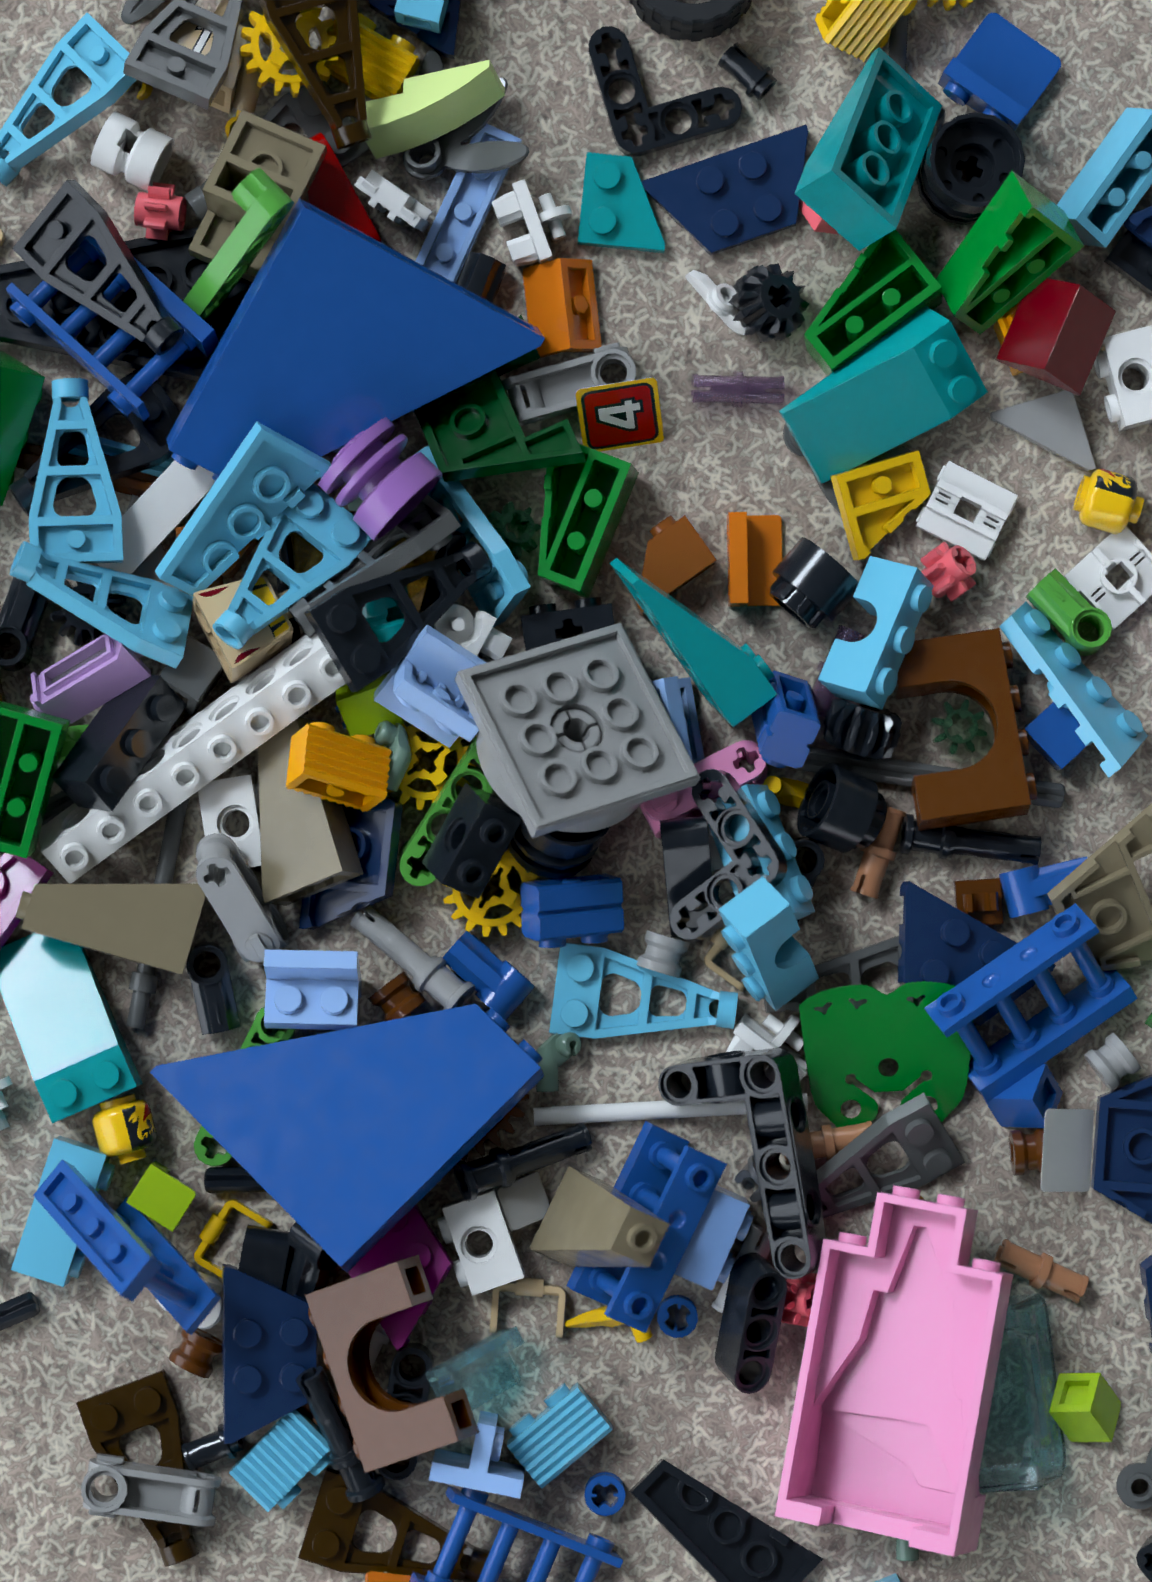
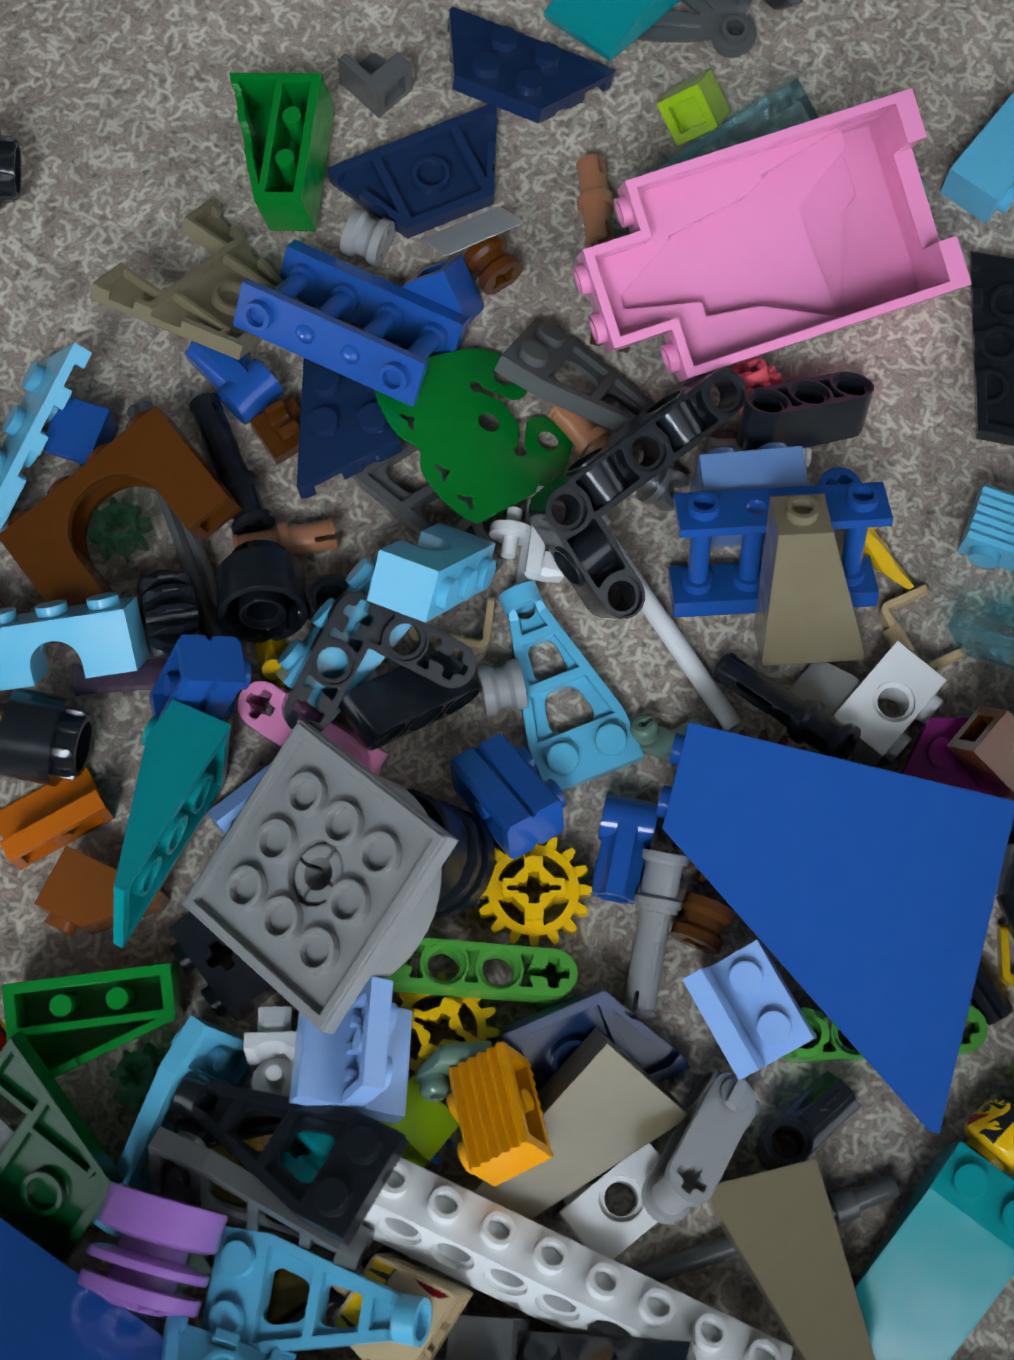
camera: 120 degrees left, 15 degrees down
(472, 841) = (497, 926): black brick -> none

